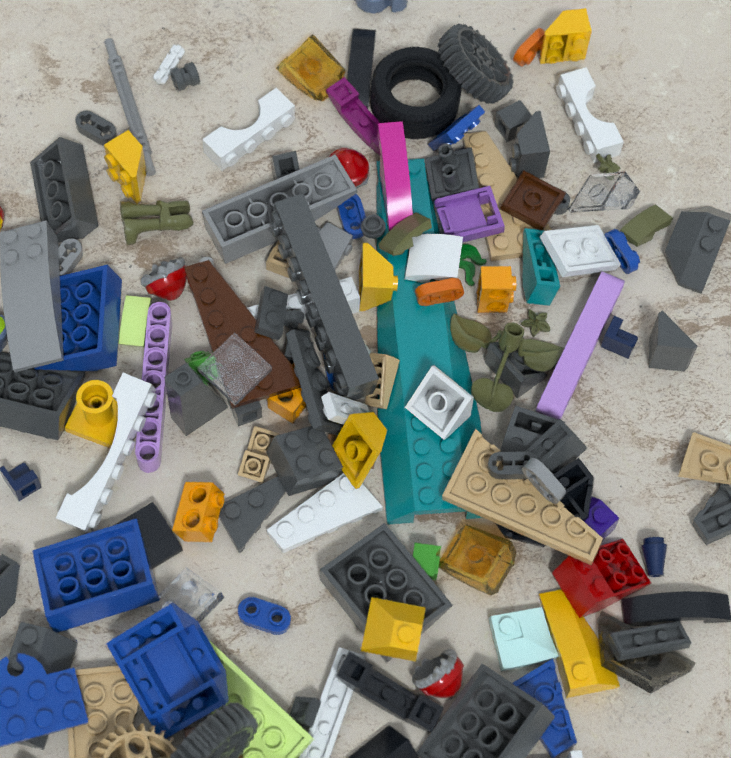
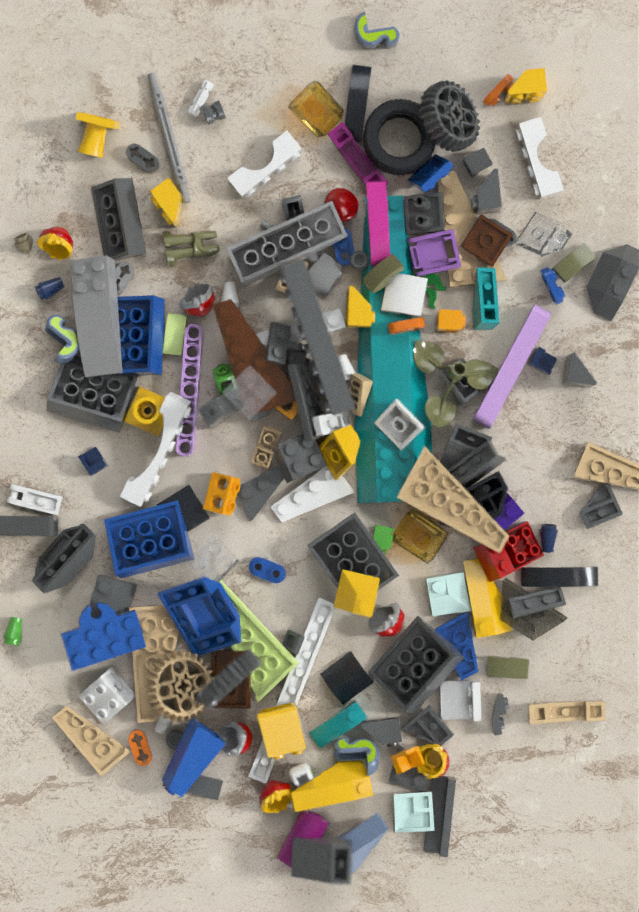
camera: 10 degrees right, 25 degrees up
(38, 88) = (95, 133): none -> yellow plant
(388, 694) = (352, 632): black slope -> none
(512, 464) = (449, 473): dark grey beam -> none
(537, 323) = (480, 344): olive plant -> none
(543, 480) = (466, 492): light grey beam -> none
(580, 250) = (518, 288): white plate -> none
(607, 164) = (550, 206): olive plant -> none
(619, 735) = (508, 667): none -> olive slope

